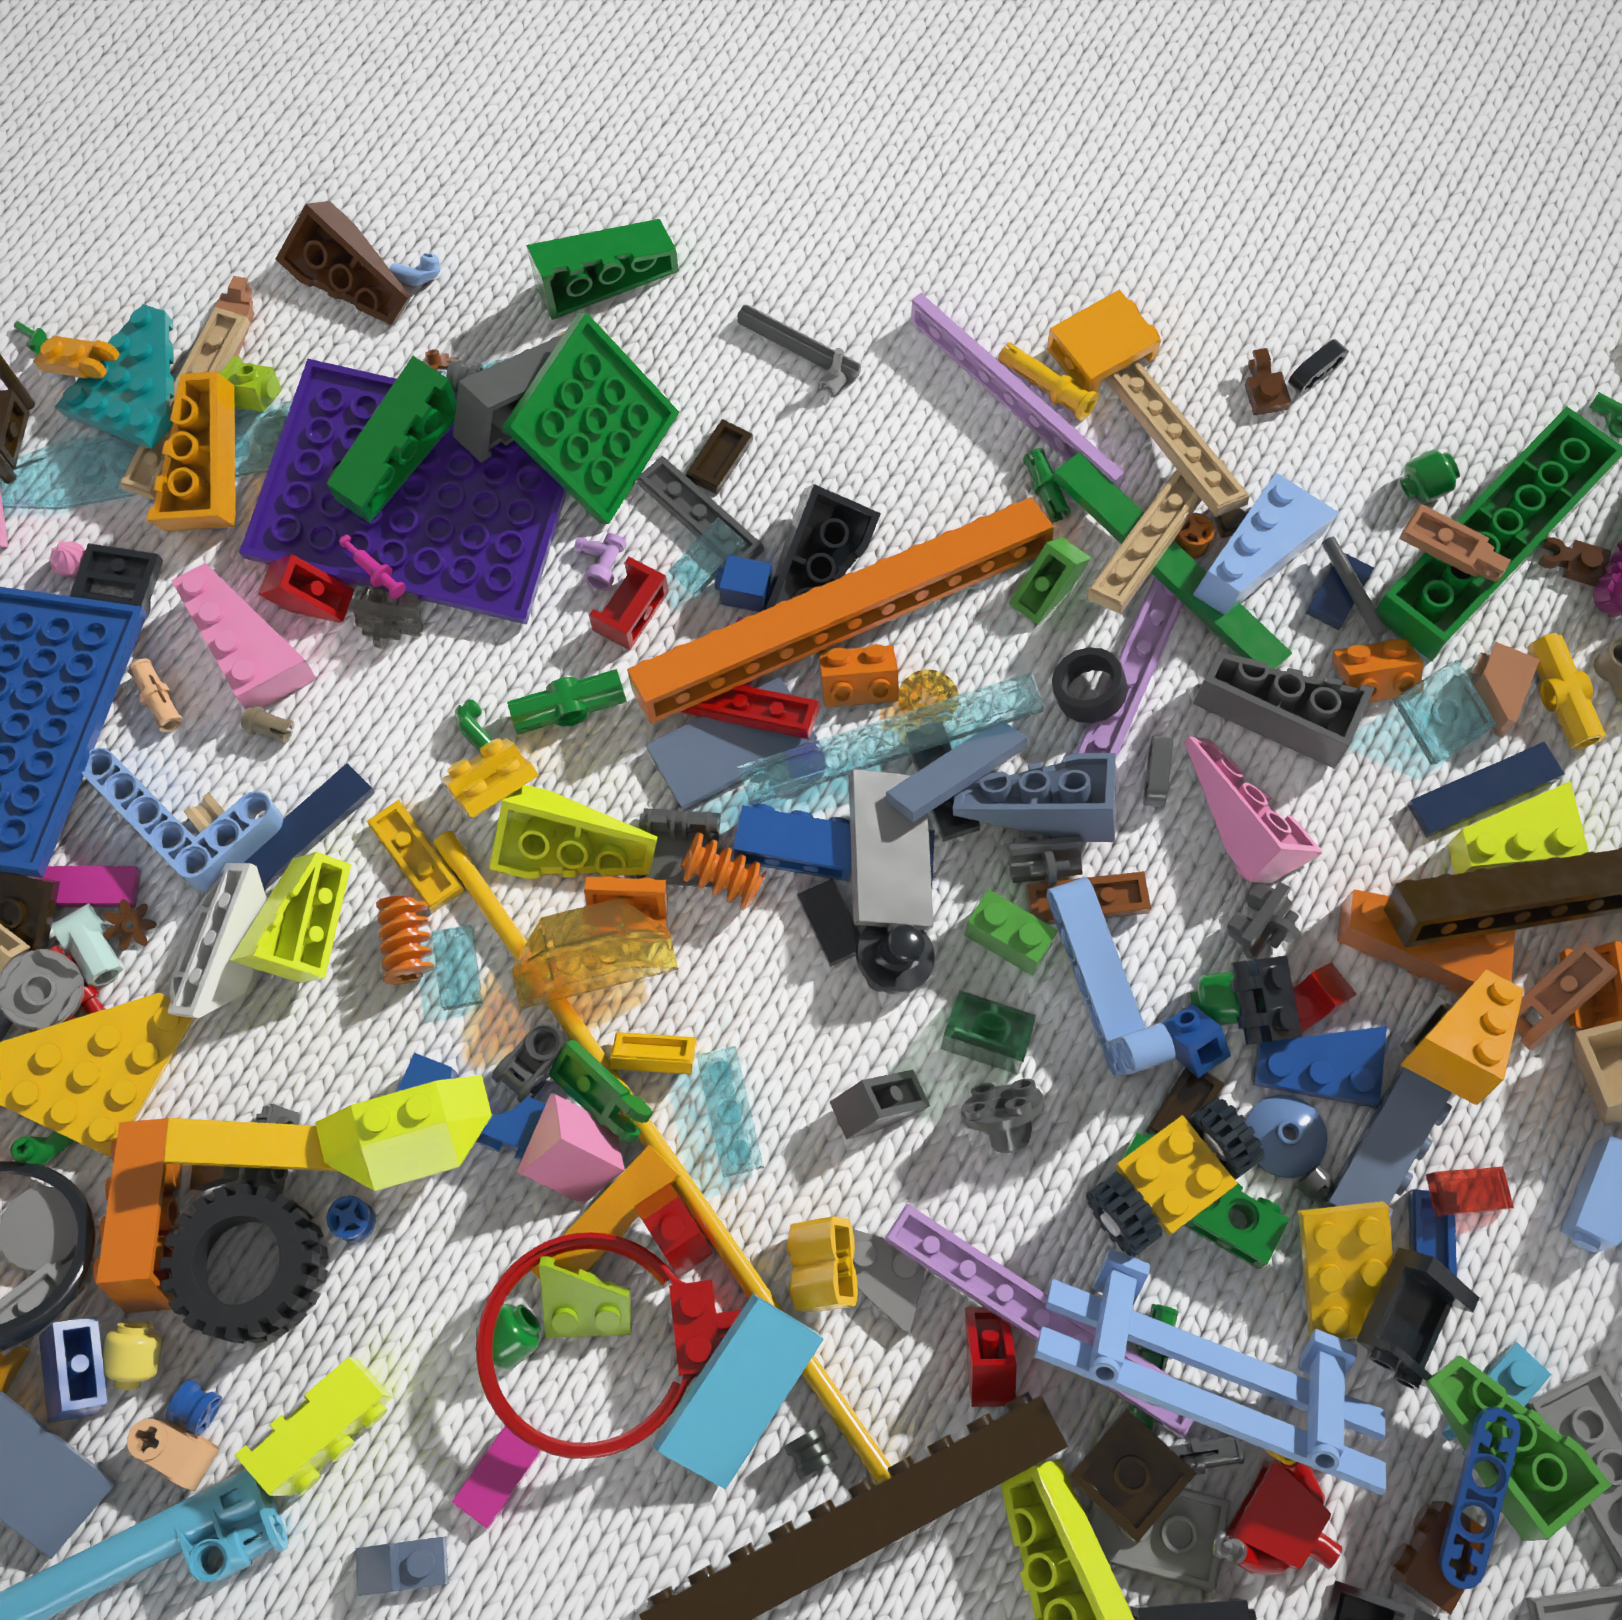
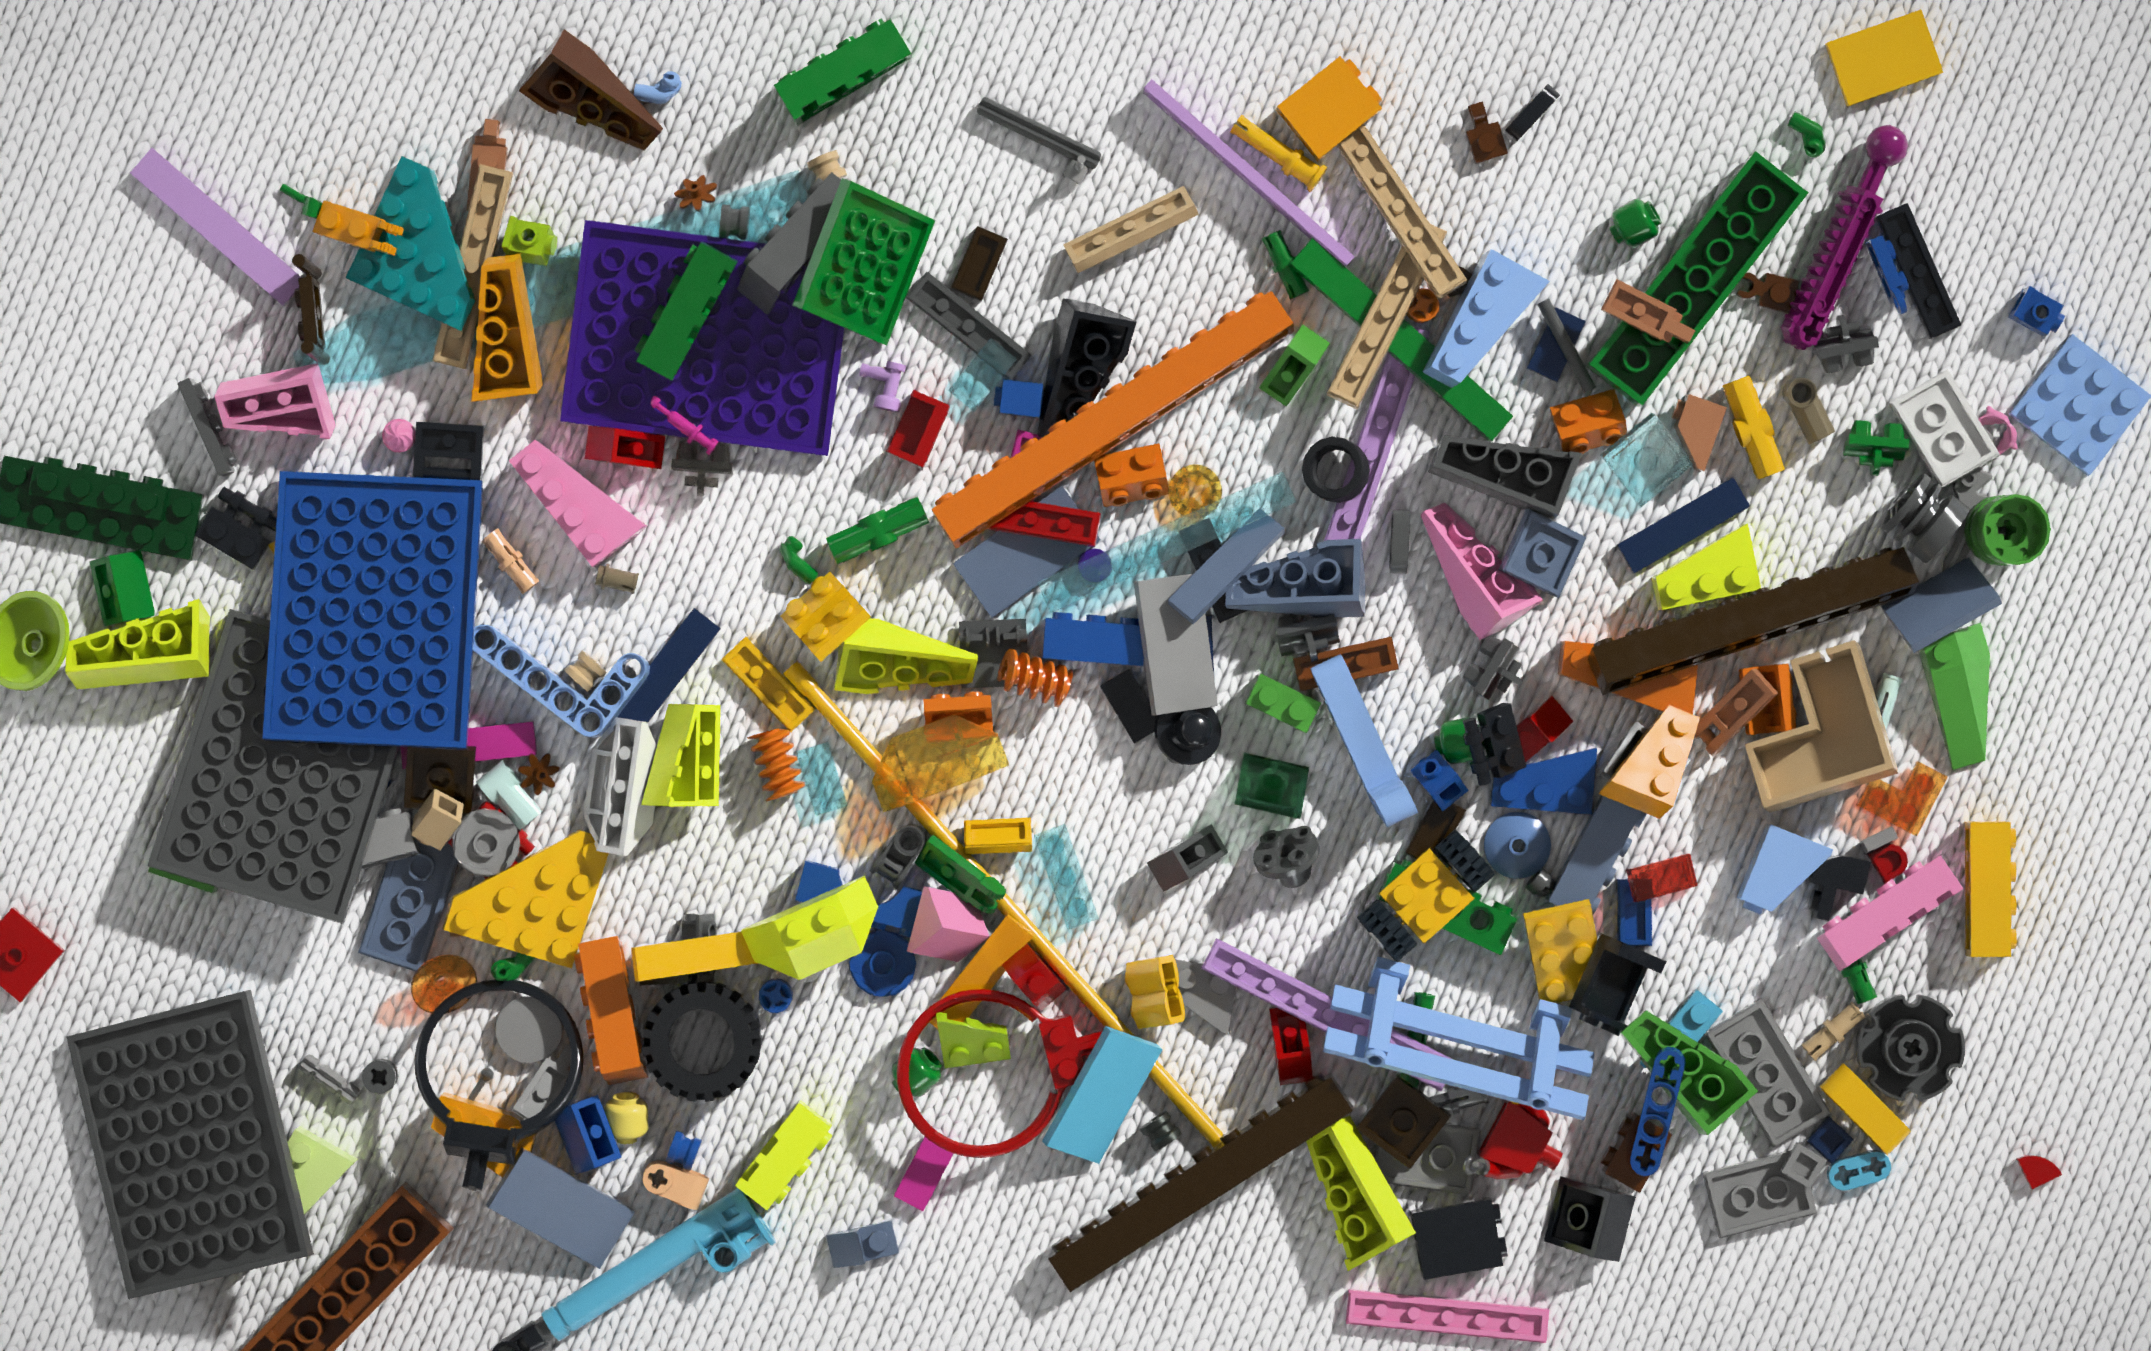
camera: 10 degrees left, 20 degrees up
(490, 1195) = (884, 964): none -> blue tile
(897, 431) = (1130, 229): none -> tan plate
(1323, 799) = (1542, 553): none -> sand blue tile

